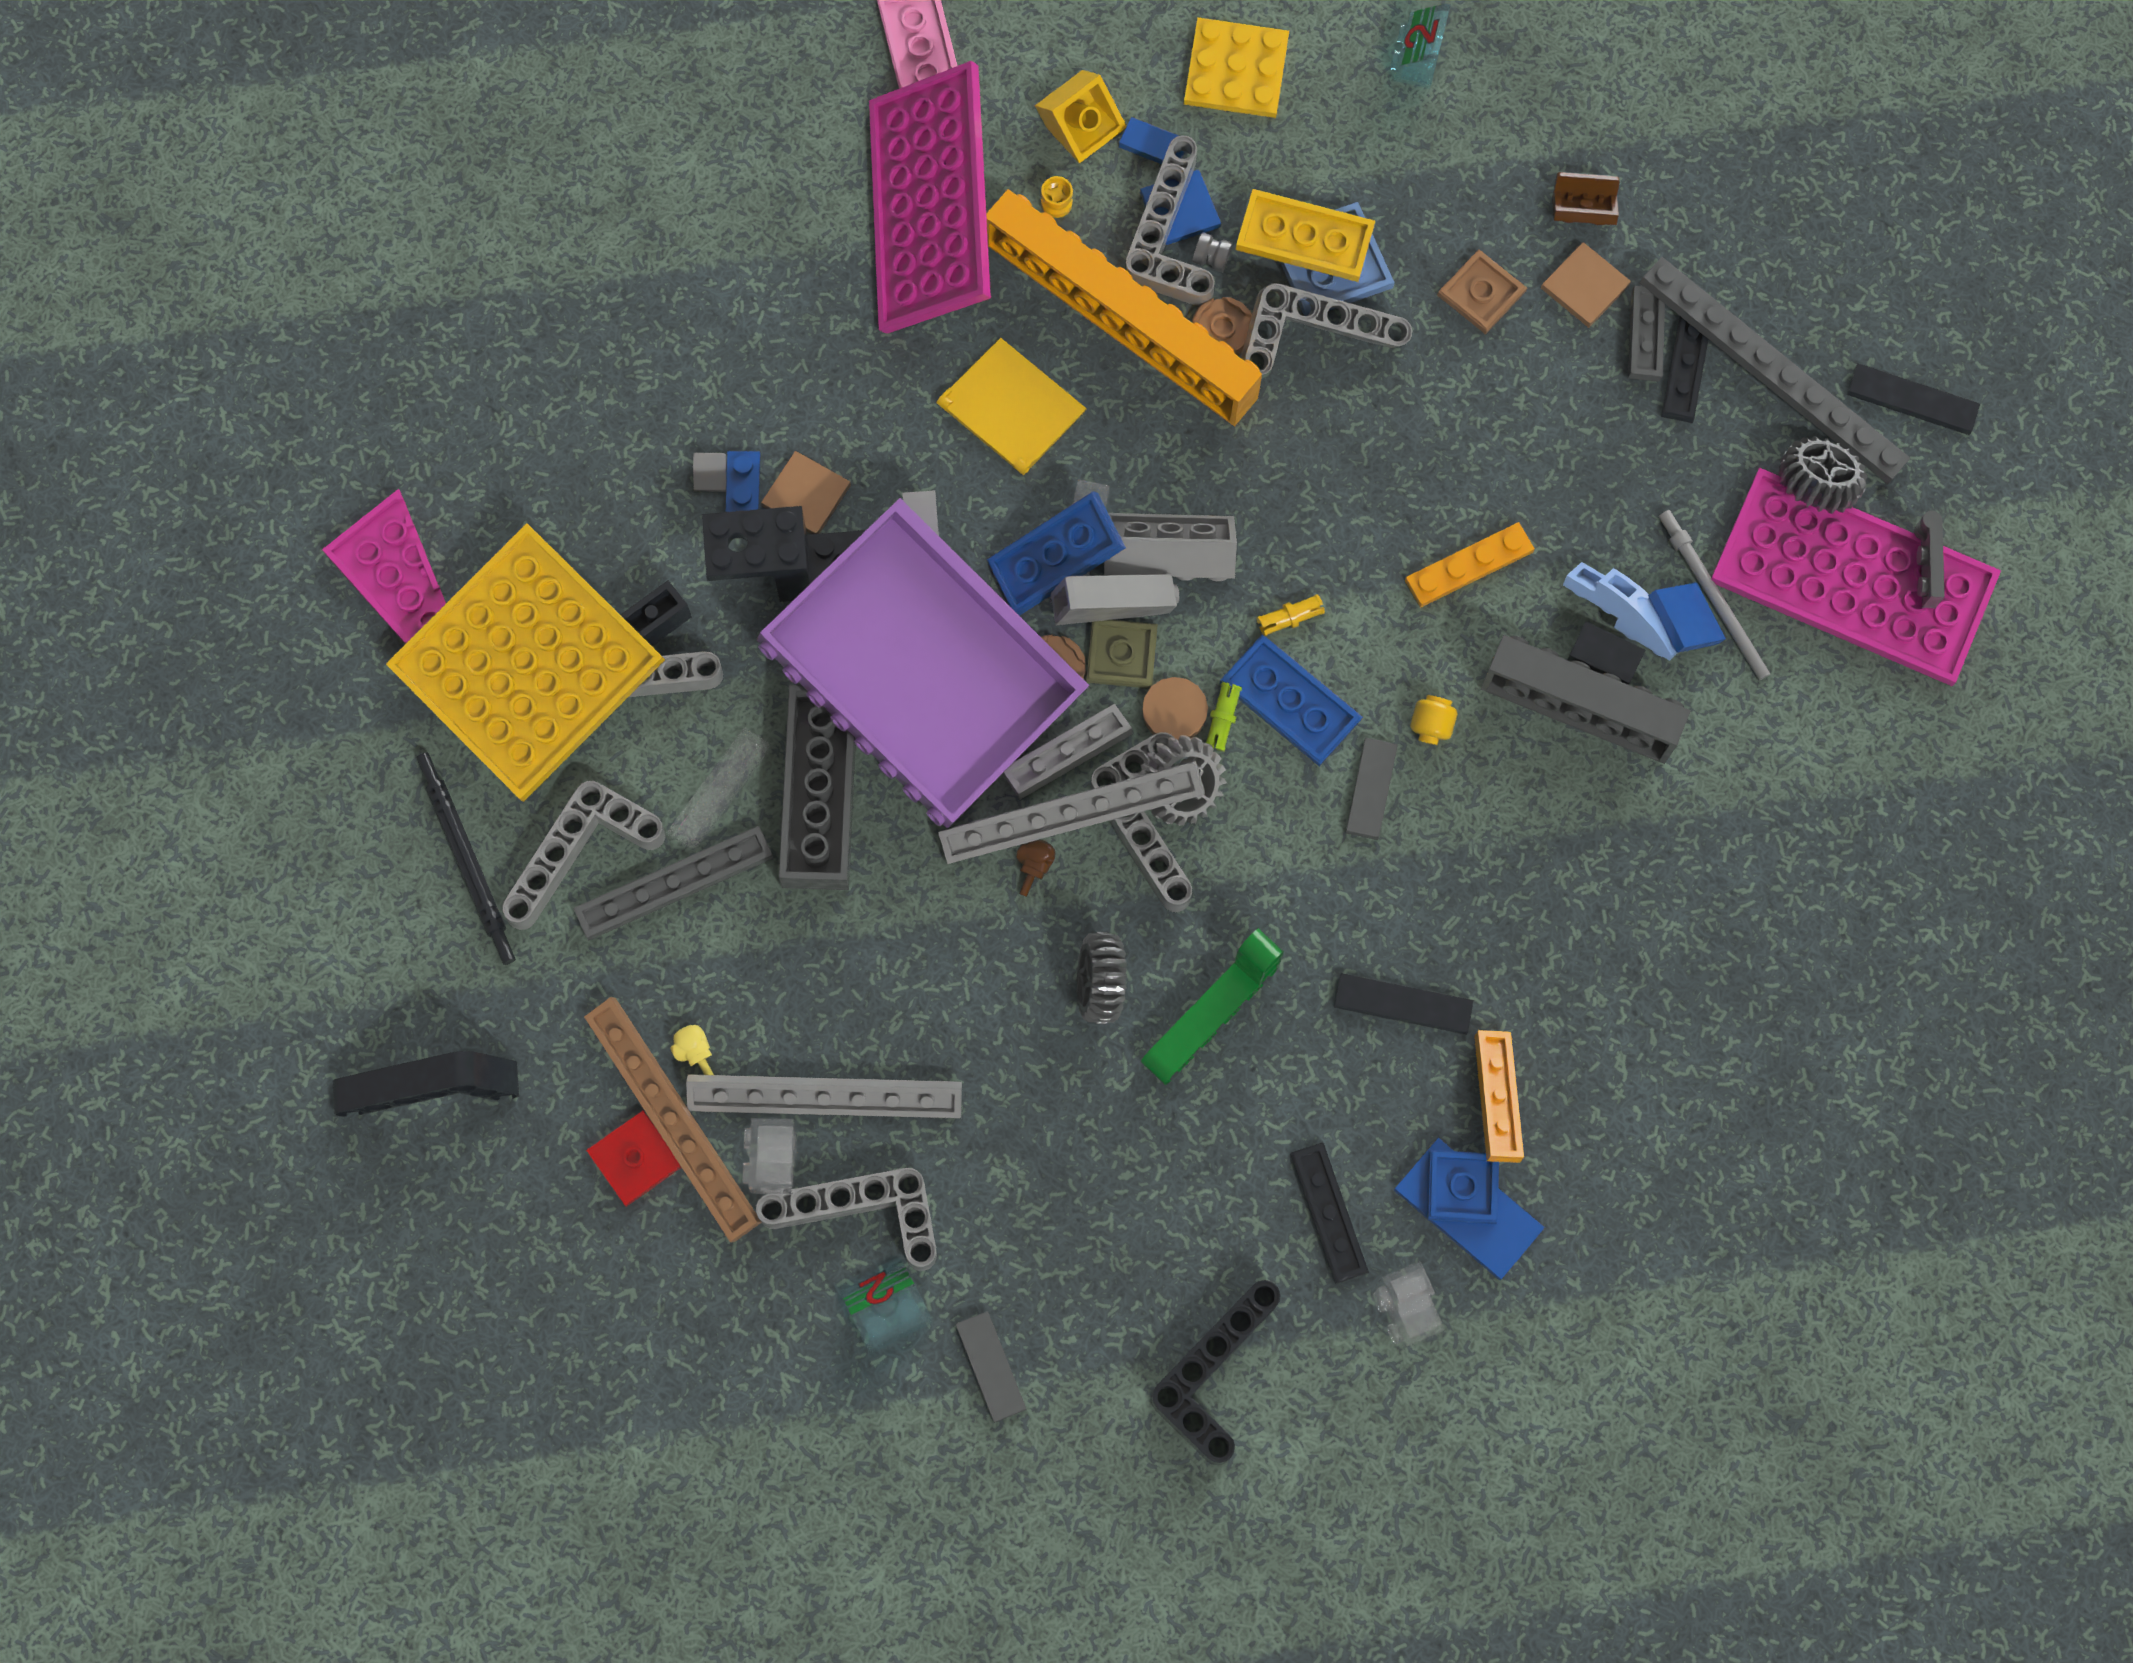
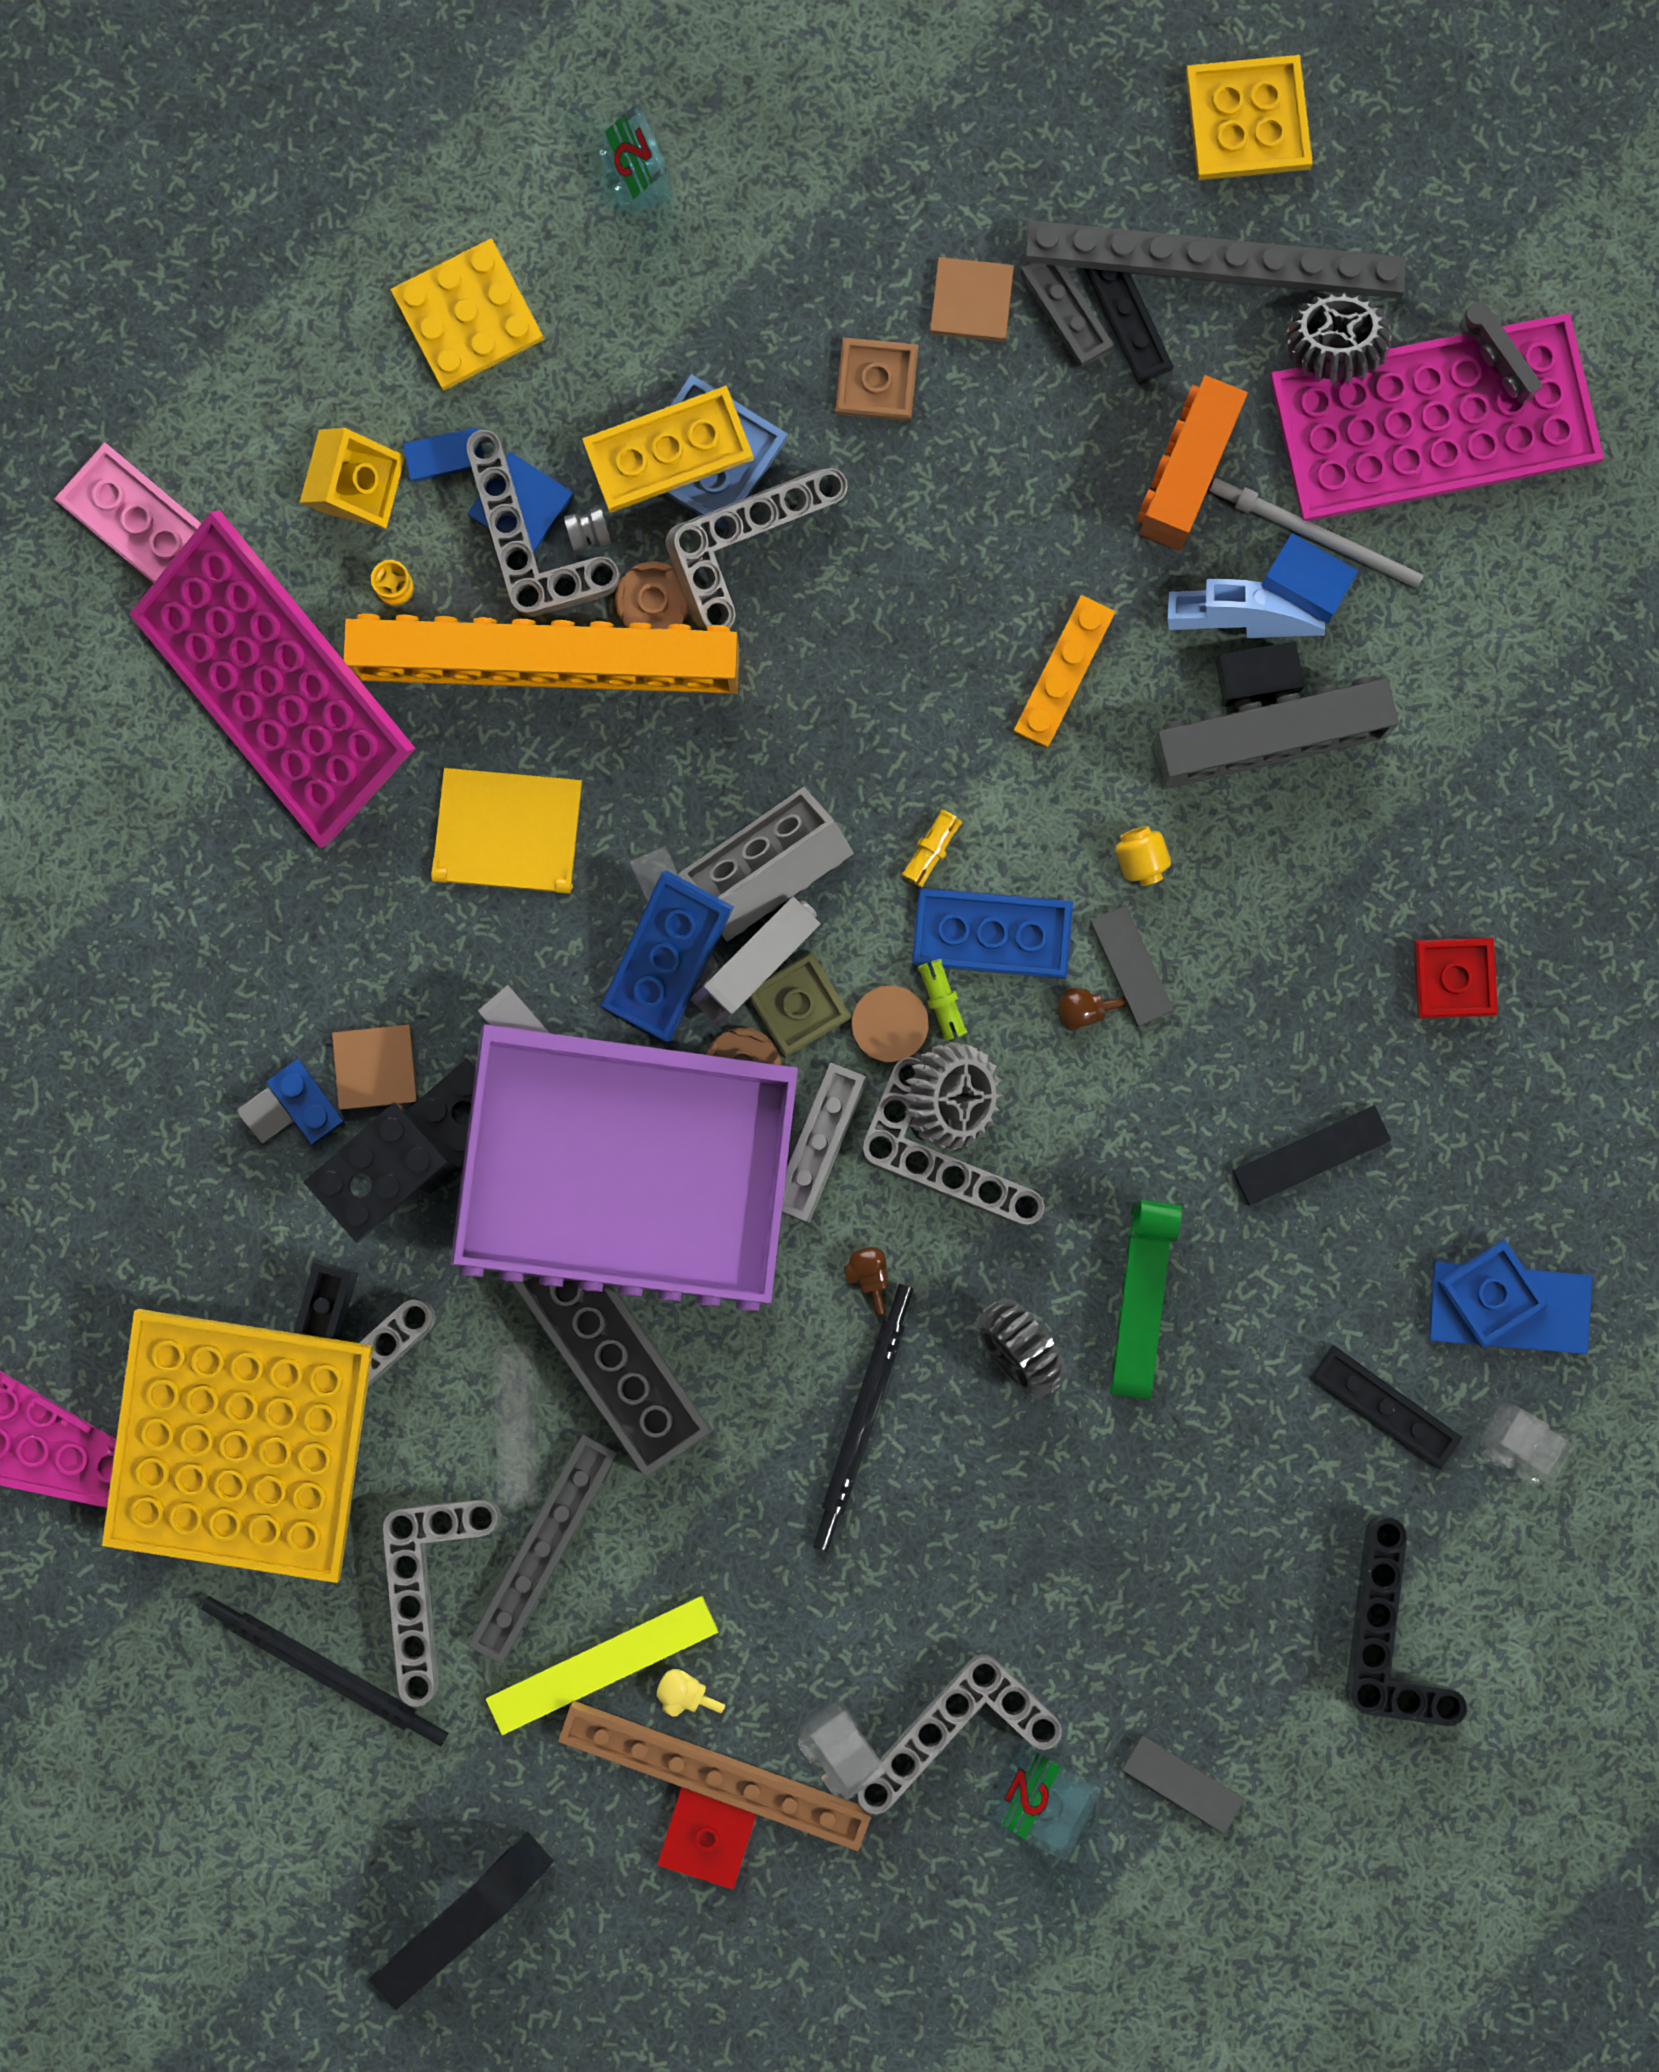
camera: 30 degrees left, 10 degrees up
(653, 990) = (602, 1665): none -> neon yellow tile
(824, 1096) = (840, 1648): light grey plate -> none
(957, 955) = (863, 1417): none -> black axle
(1072, 812) = (876, 1206): light grey plate -> none
(1315, 791) = (1082, 1008): none -> reddish brown piece
(1499, 1096) = (1466, 1184): light orange plate -> none
(1585, 198) = (910, 210): reddish brown bracket -> none
(1594, 956) = (1455, 978): none -> red plate
(1658, 485) = (1194, 457): none -> orange brick
(1865, 296) = (1248, 117): none -> yellow plate
(1913, 399) = (1366, 192): black tile -> none

